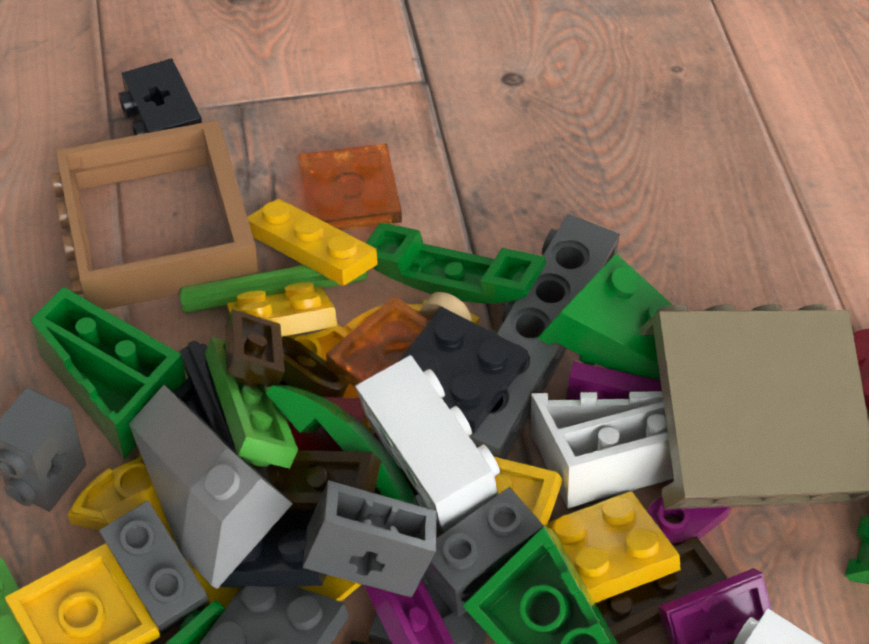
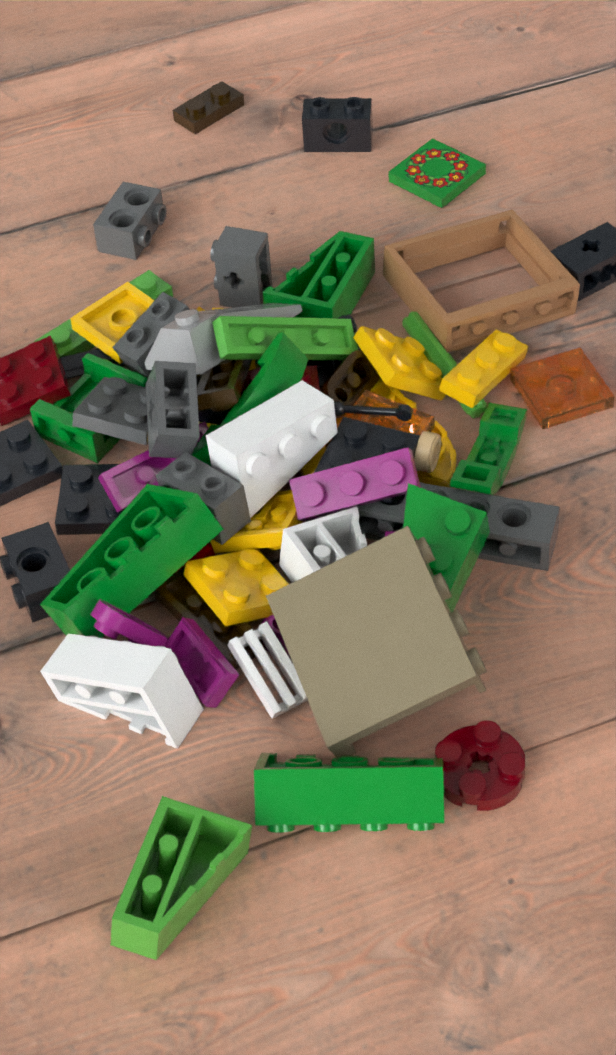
camera: 85 degrees right, 5 degrees down
(253, 350) = (330, 329): dark brown plate -> none
(387, 321) = (403, 412): none -> black hinge
(513, 381) = (354, 484): none -> magenta plate
(736, 531) = (283, 661): none -> white tile

